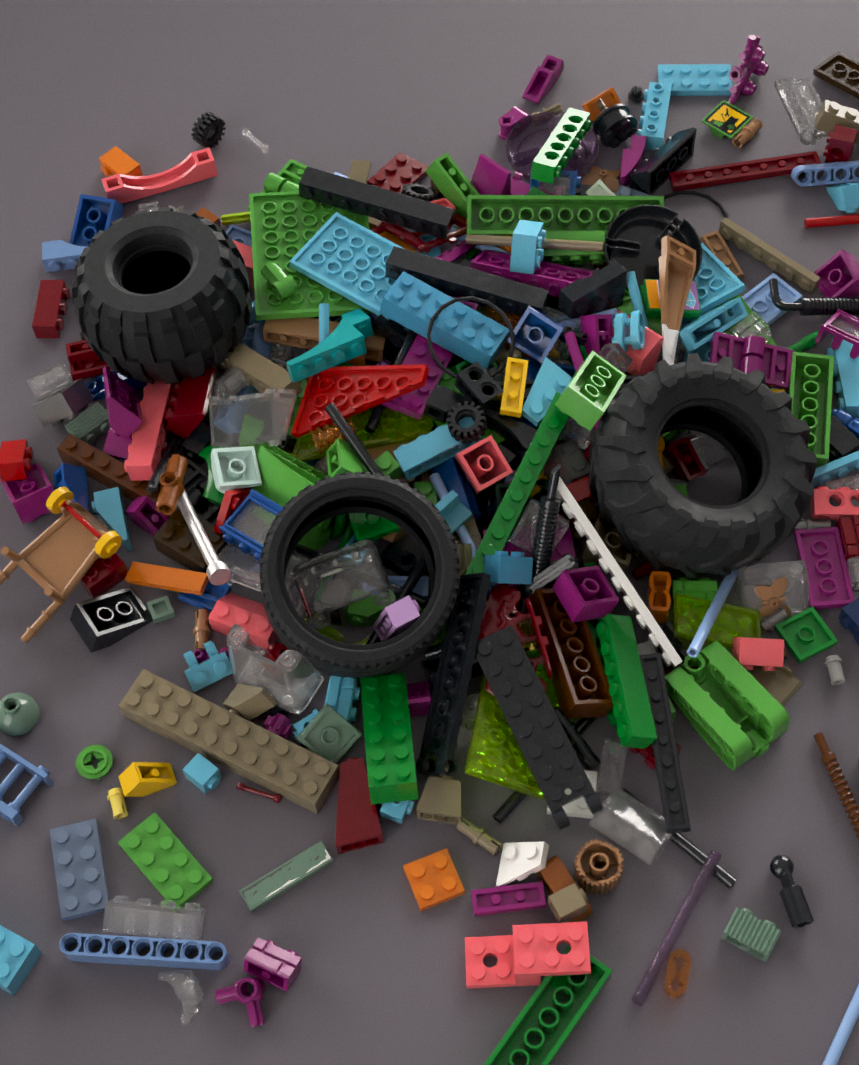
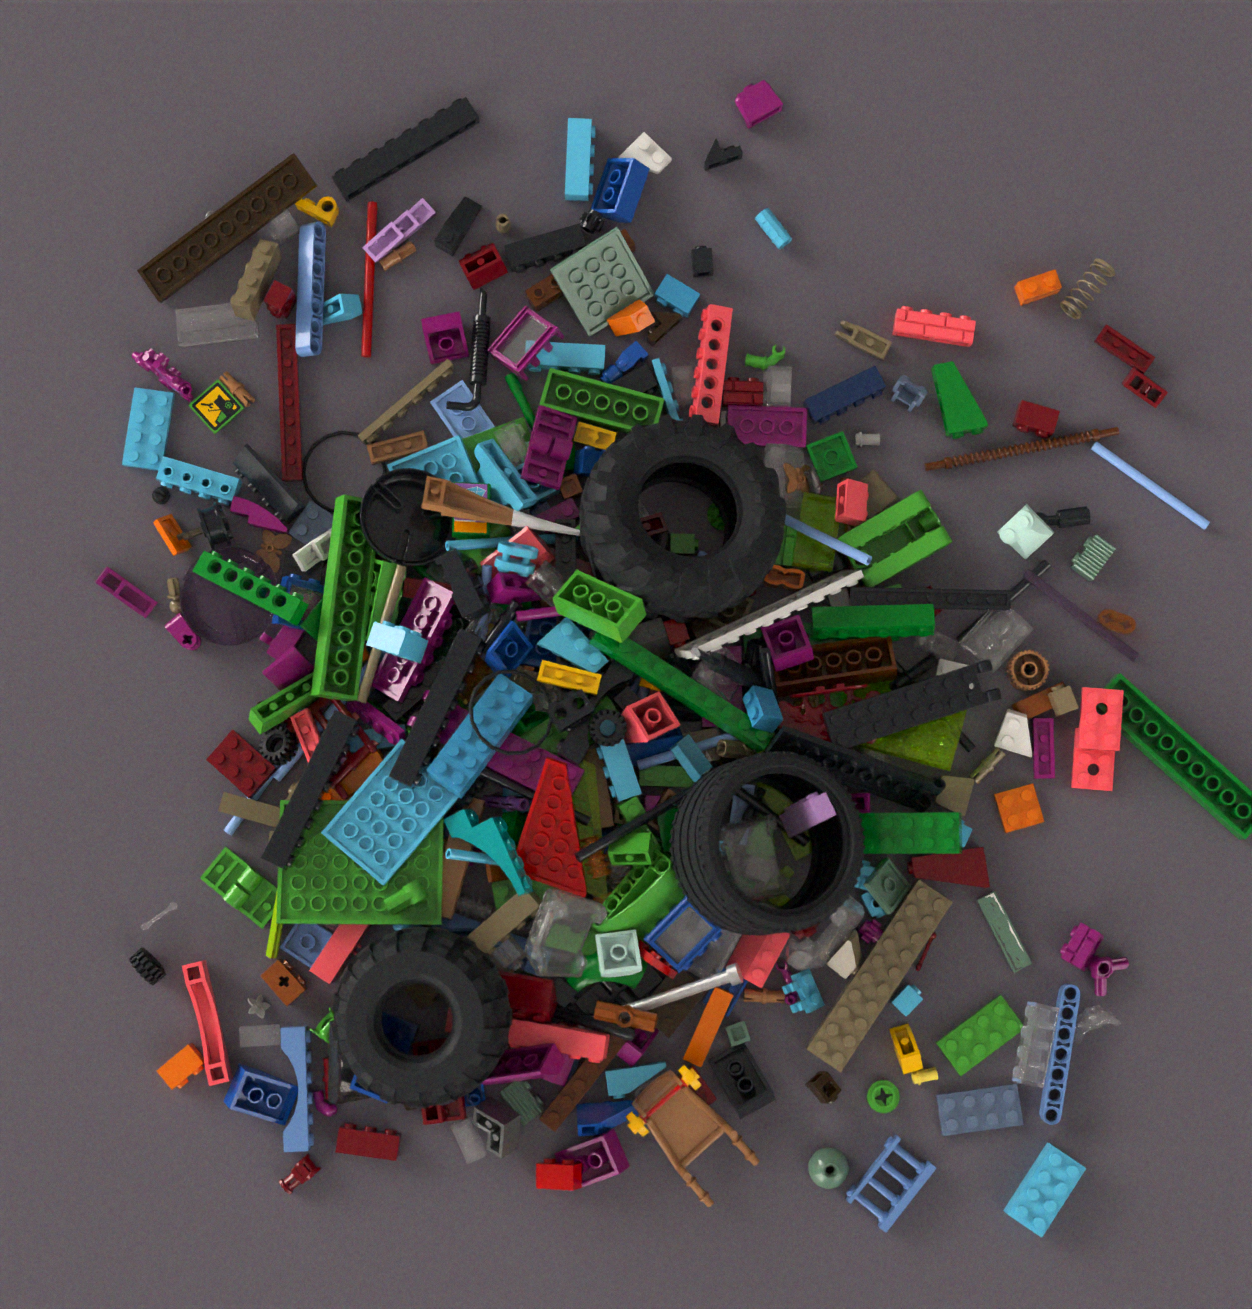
camera: 90 degrees left, 25 degrees up
(23, 262) = (302, 1172): none -> dark red connector
(102, 689) = (831, 1089): none -> dark brown brick
(766, 847) = (1025, 532): none -> light aqua slope

